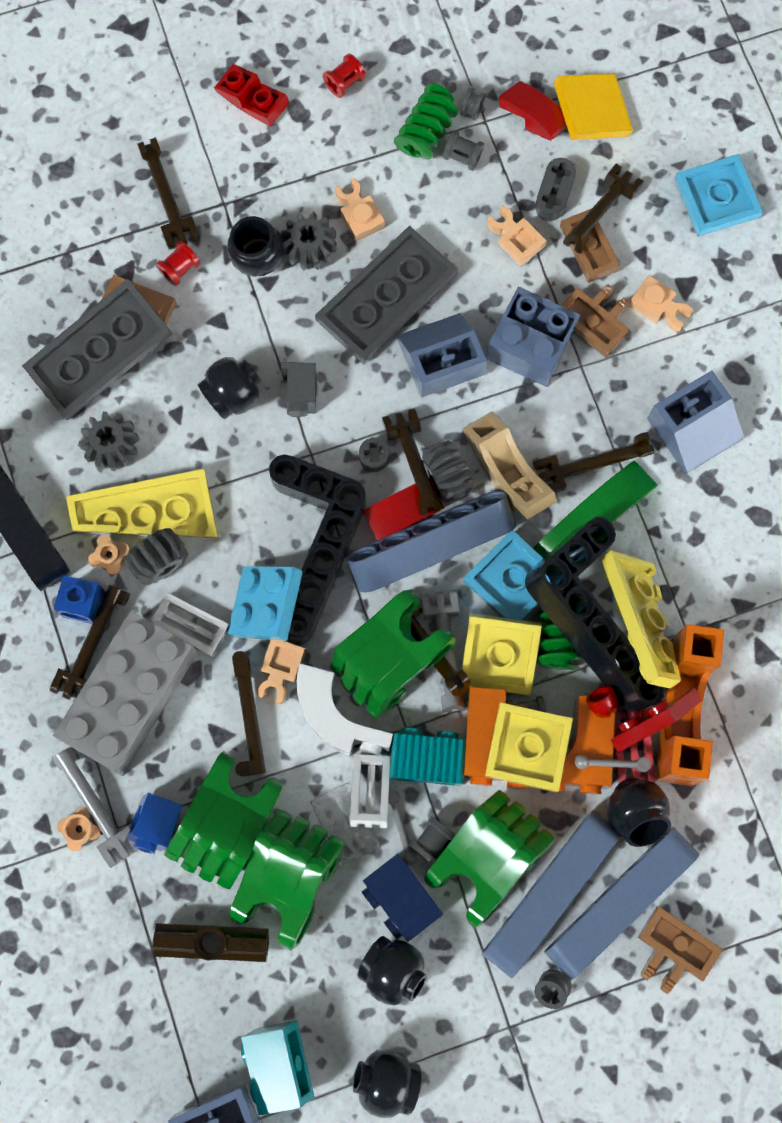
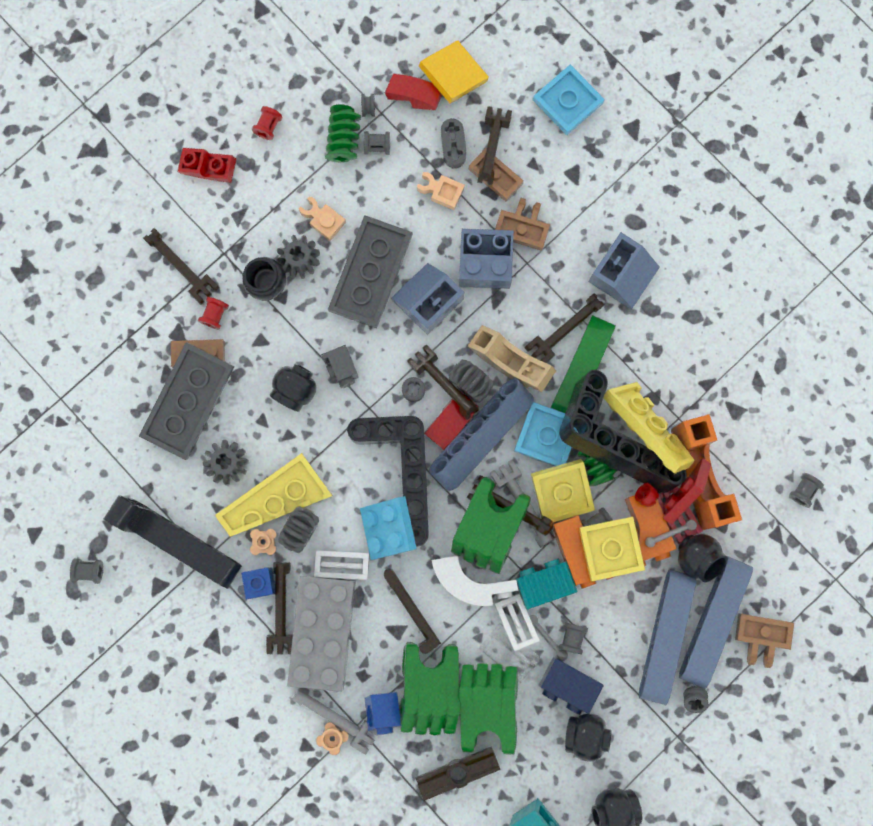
camera: 25 degrees left, 5 degrees up
(282, 664) = (418, 564): light nougat plate -> none
(493, 851) = (618, 629): green piece -> none
(656, 300) = (557, 195): light nougat plate -> none

